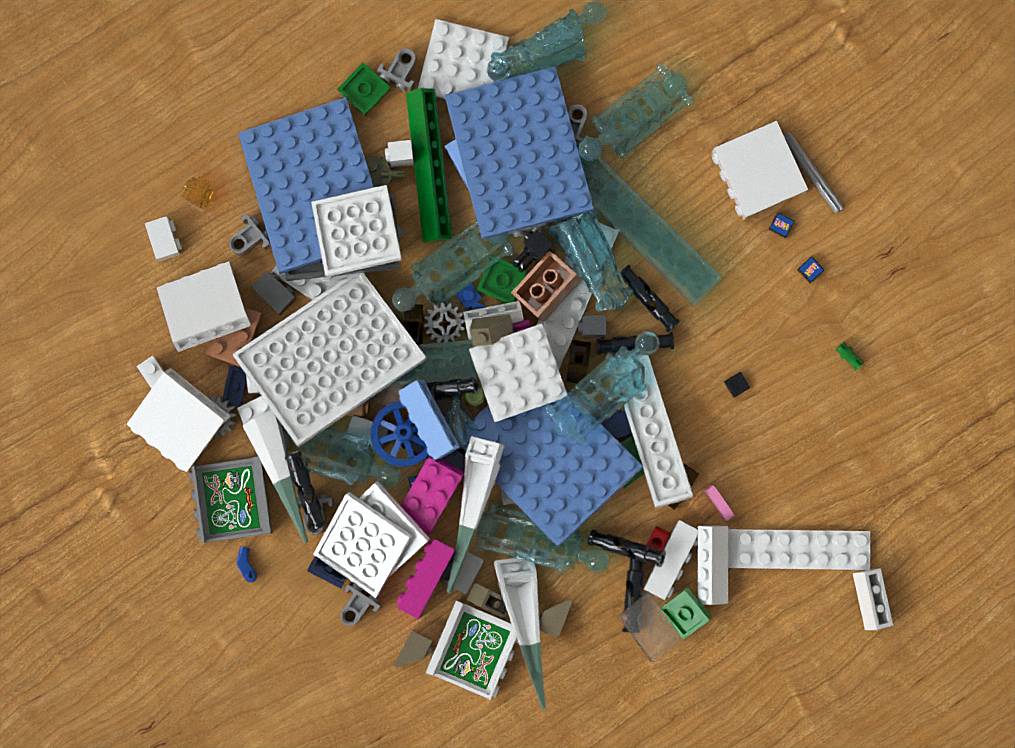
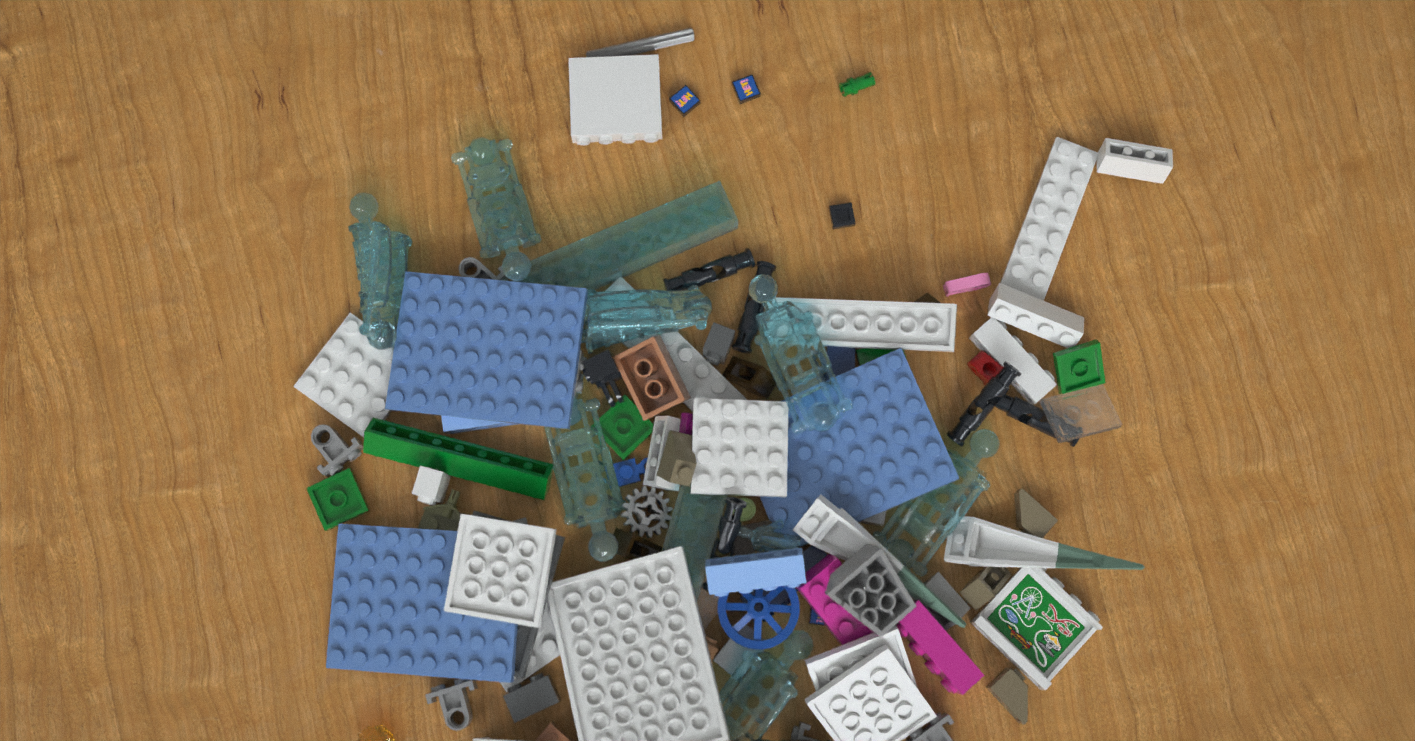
camera: 70 degrees left, 5 degrees down
(446, 509) = (870, 590): none -> light grey wedge

